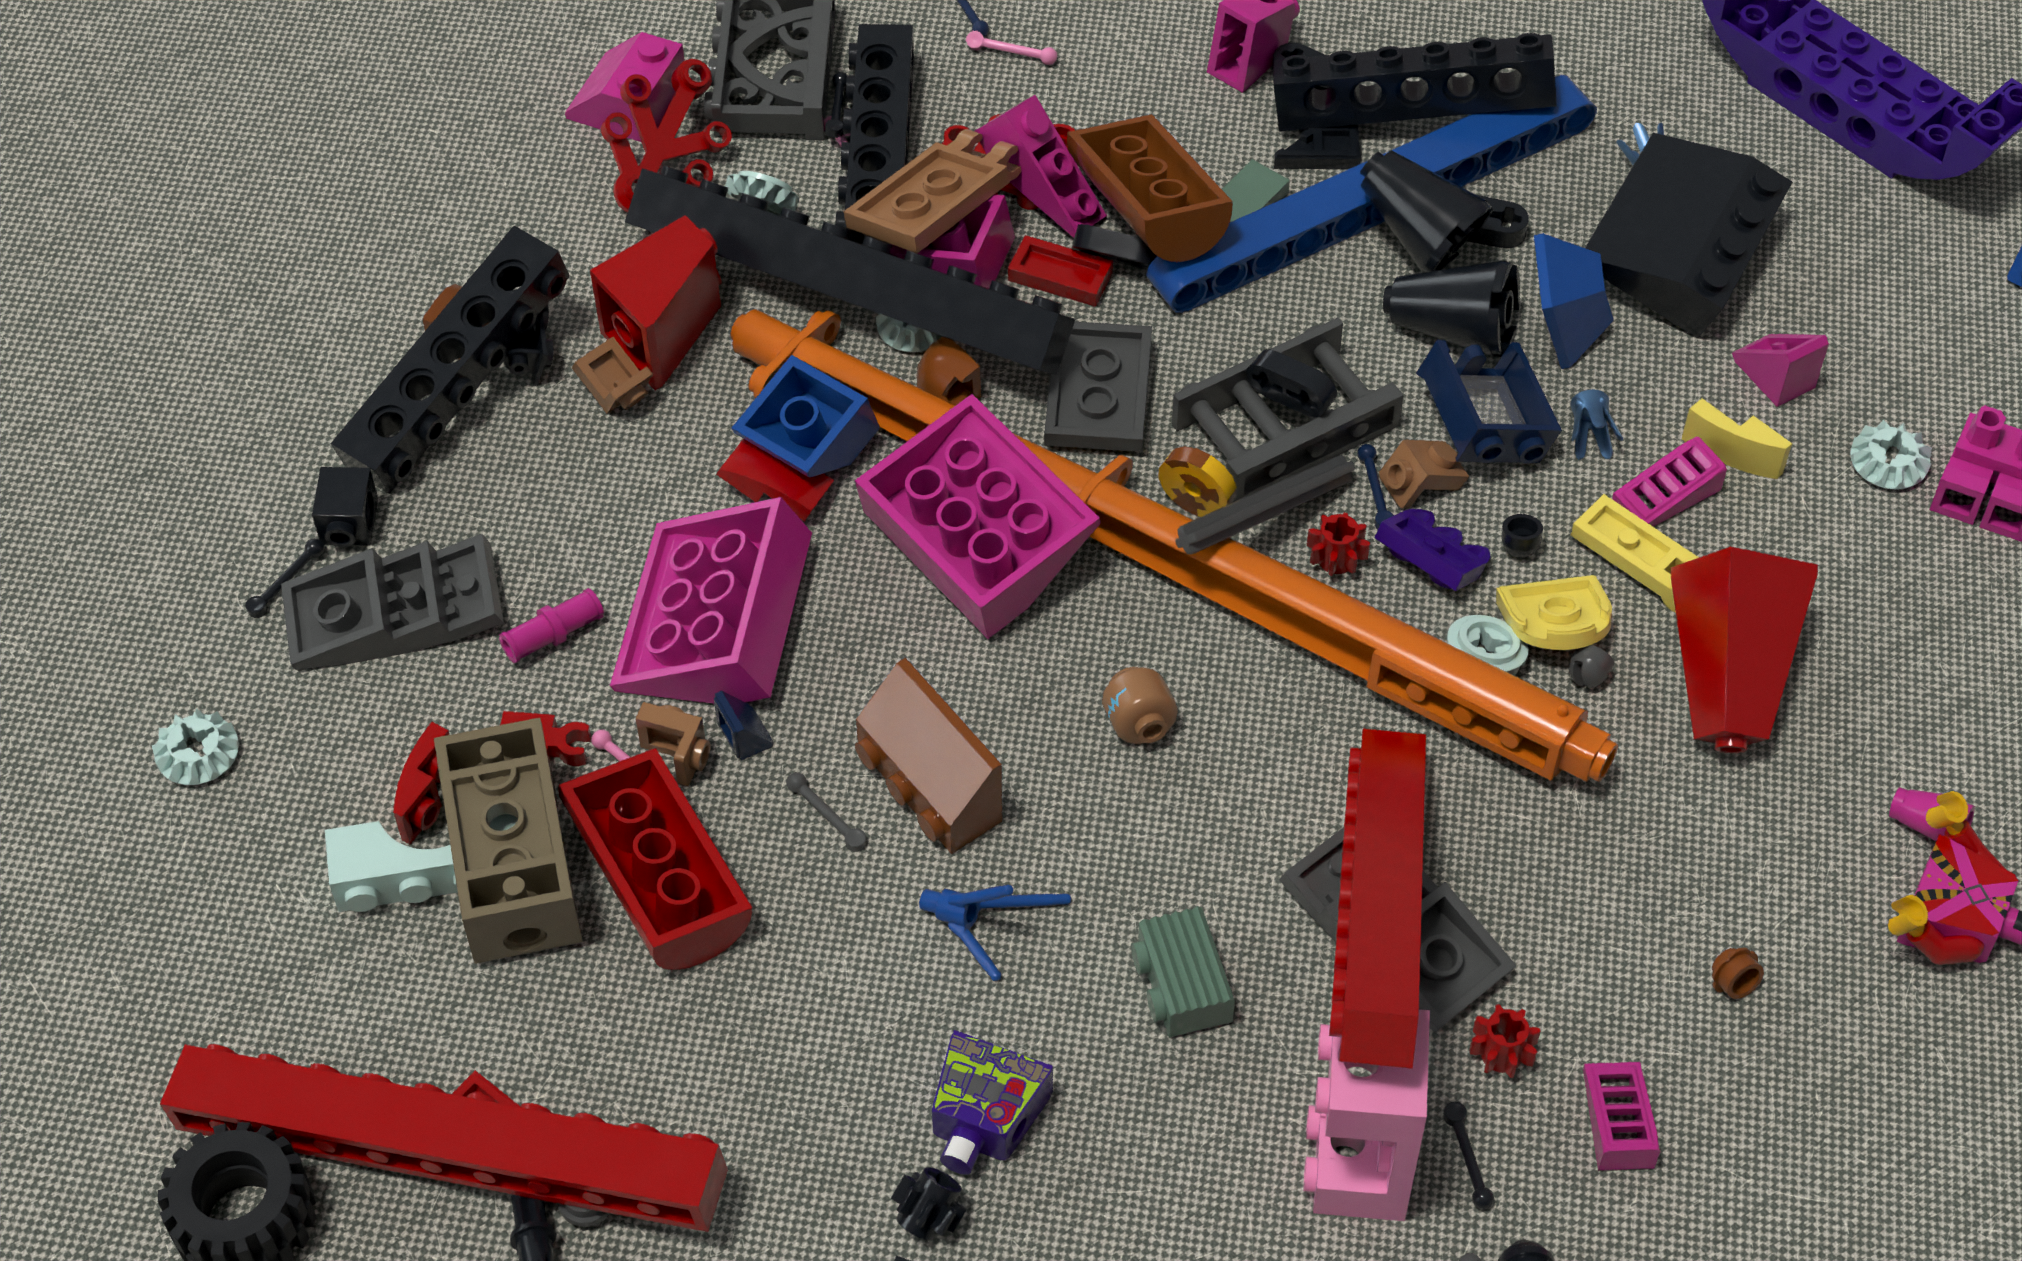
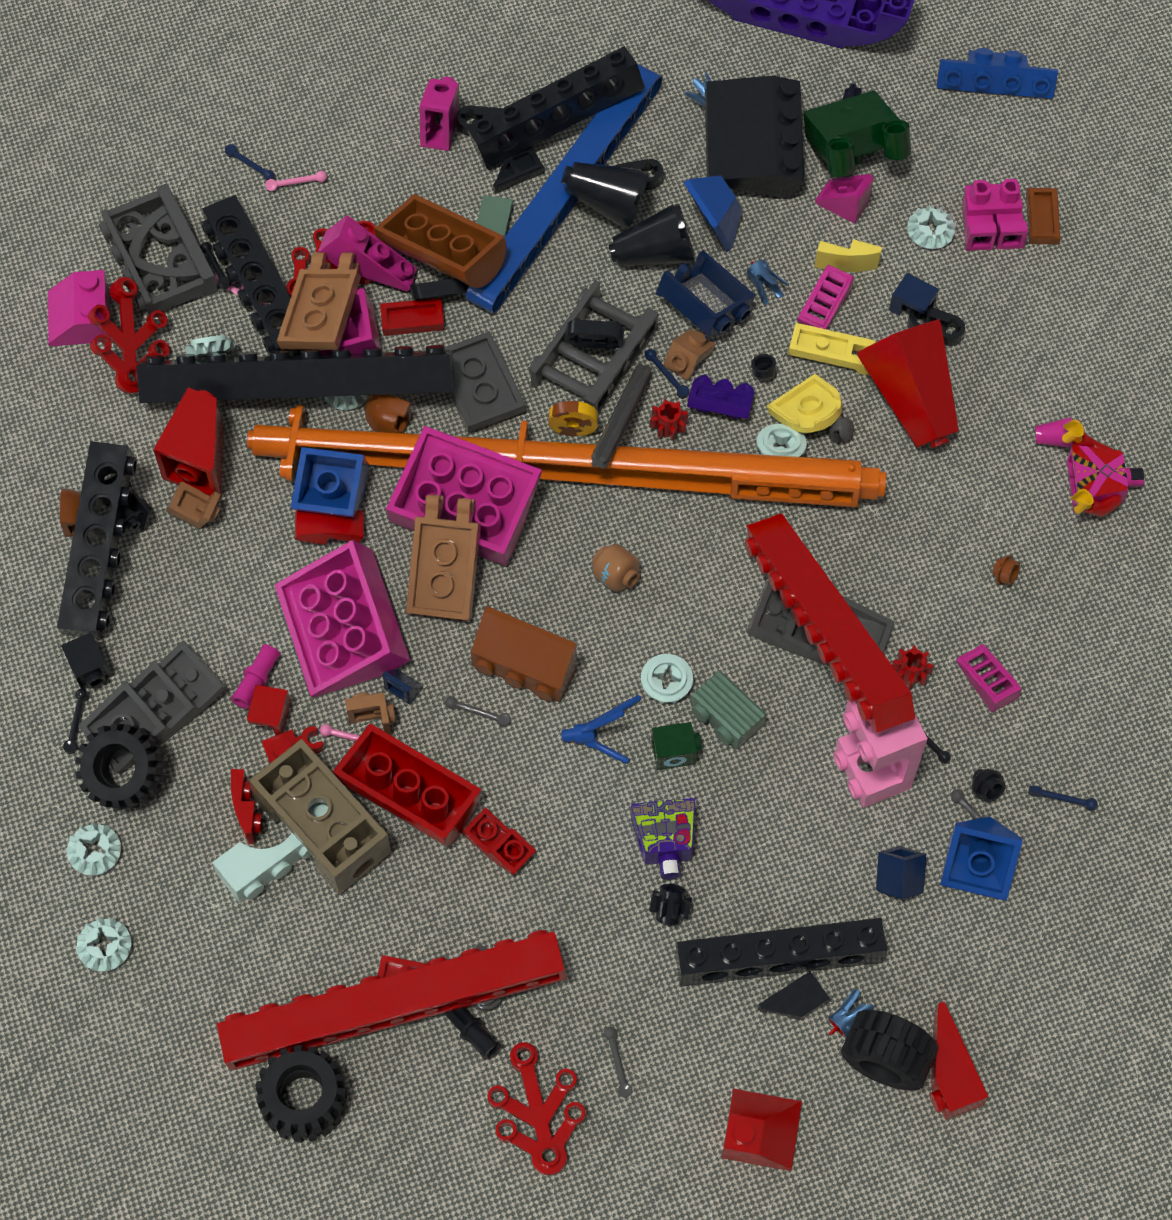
camera: 30 degrees left, 10 degrees up
(131, 892) = (116, 951): none -> light aqua gear
(267, 630) = (96, 760): none -> black tyre
(540, 672) = (269, 708): none -> red panel
(740, 997) = (498, 842): none -> red slope
(895, 581) = (444, 561): none -> medium nougat tile
(1075, 985) = (675, 745): none -> dark green brick
(1122, 869) = (657, 668): none -> light aqua gear
(1807, 527) = (914, 294): none -> dark blue panel
(1830, 586) = (946, 319): none -> black beam
(1839, 272) = (854, 128): none -> dark green piece

